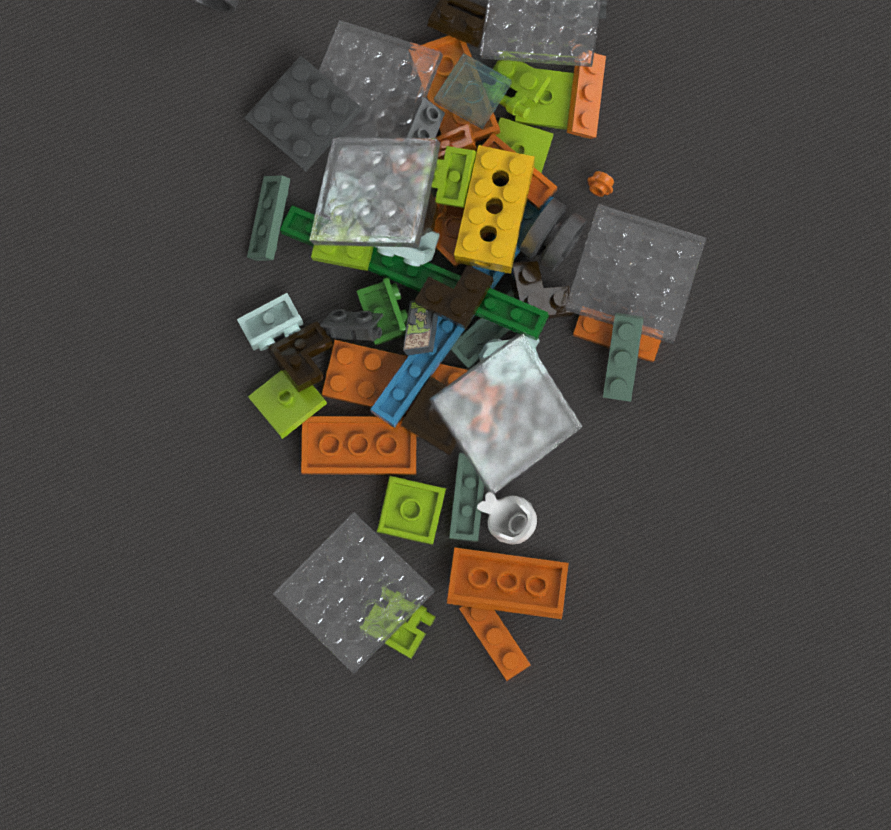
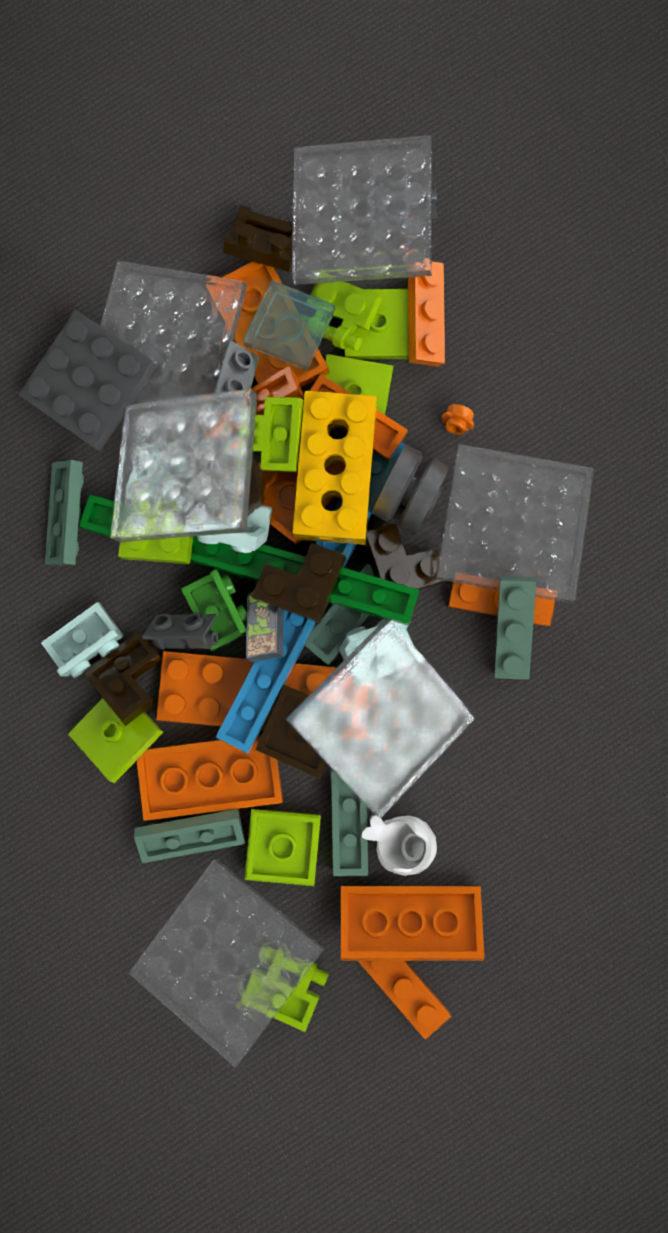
camera: 10 degrees left, 5 degrees up
(336, 490) = (189, 836): none -> sand green plate

